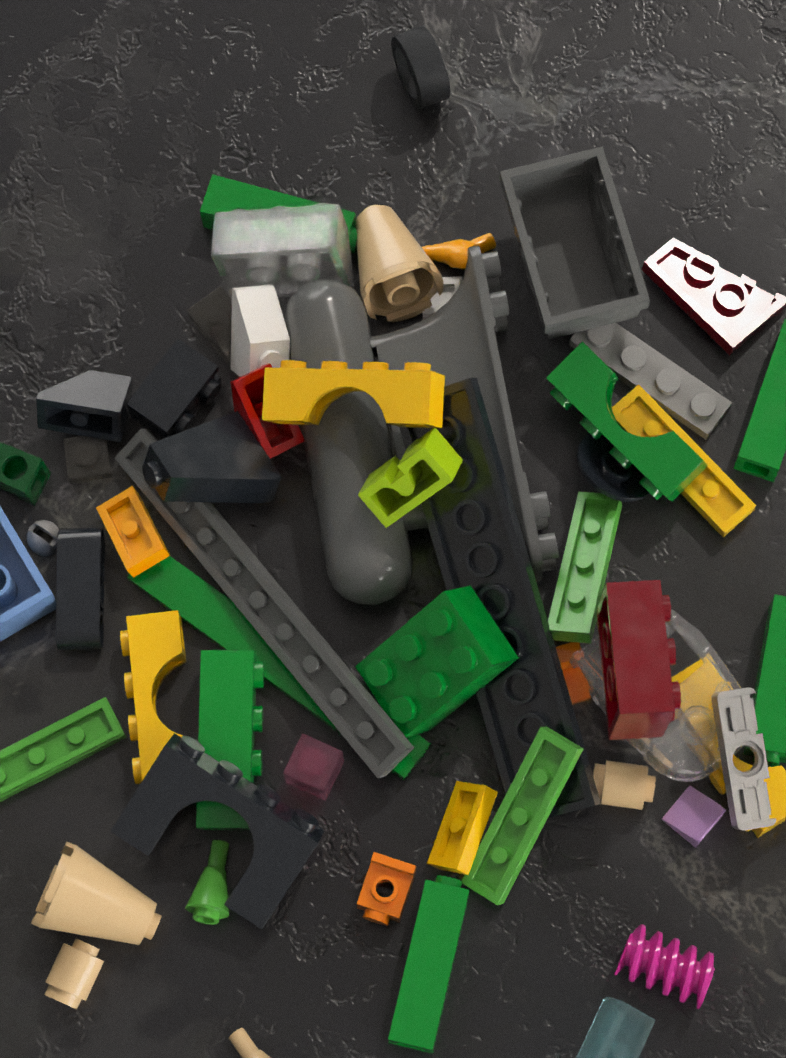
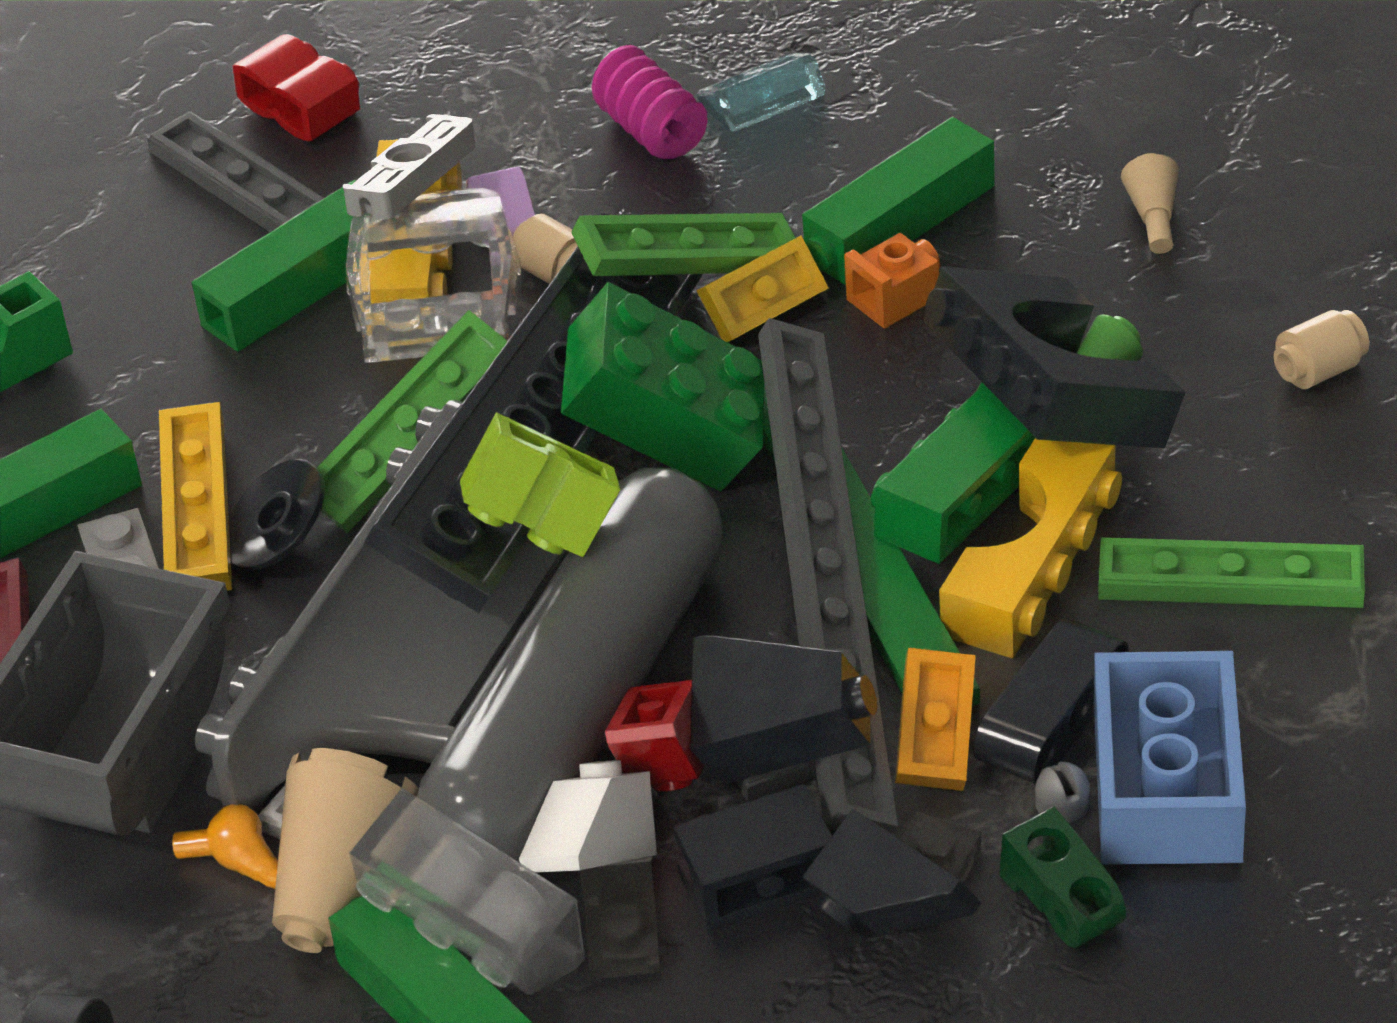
camera: 145 degrees left, 30 degrees down
(94, 901) = (1263, 388): tan cone -> none
(303, 394) = (589, 653): yellow arch -> none
(313, 766) = (889, 399): clear pink brick -> none
(589, 385) = (221, 472): green arch -> none
(637, 659) = (446, 223): dark red brick -> none

